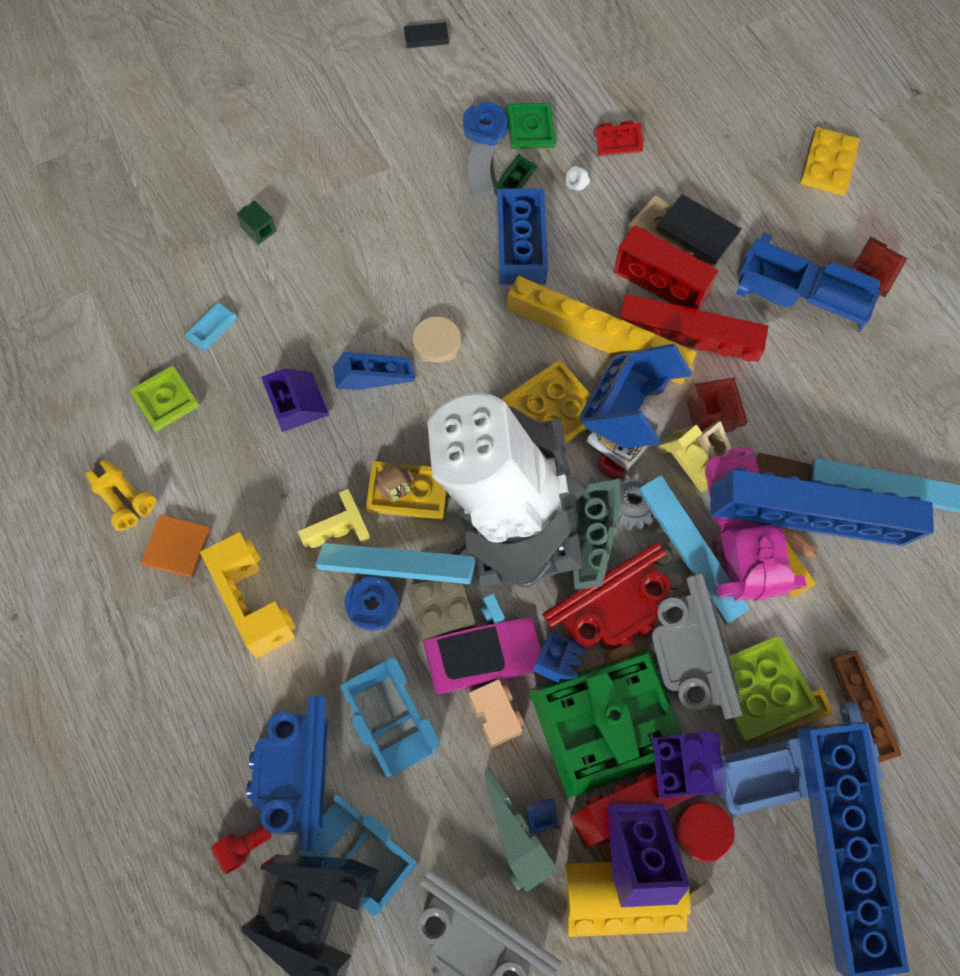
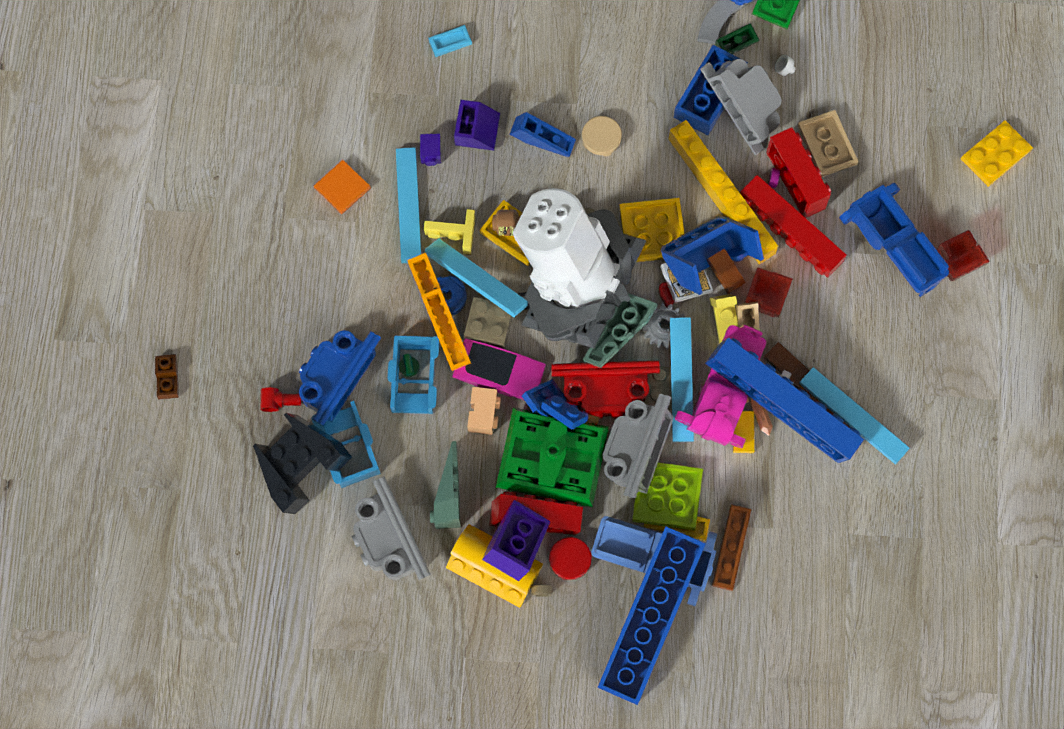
camera: 35 degrees right, 5 degrees up
(78, 903) = (167, 376): none -> reddish brown slope
(123, 517) = (316, 119): yellow piece -> none
(164, 398) = (389, 78): lime plate -> none
(231, 563) = (368, 218): yellow plate -> none
(256, 449) = (430, 149): none -> dark purple brick
(267, 526) = (408, 203): none -> medium azure tile
(376, 711) = (409, 365): none -> dark green plate
(377, 627) = (439, 311): none -> light orange slope
(491, 610) = (521, 344): medium azure plate -> none
(542, 816) = (473, 489): blue plate -> none
(569, 222) = (747, 98): none -> light grey brick
(594, 660) = (564, 412): none -> blue plate
(618, 138) = (837, 49): red bracket -> none
(640, 288) = (774, 177): none -> magenta tile
(657, 408) = (726, 271): none -> dark orange tile
(689, 764) = (582, 508): dark purple slope -> none
(698, 229) = (847, 154): black tile -> none

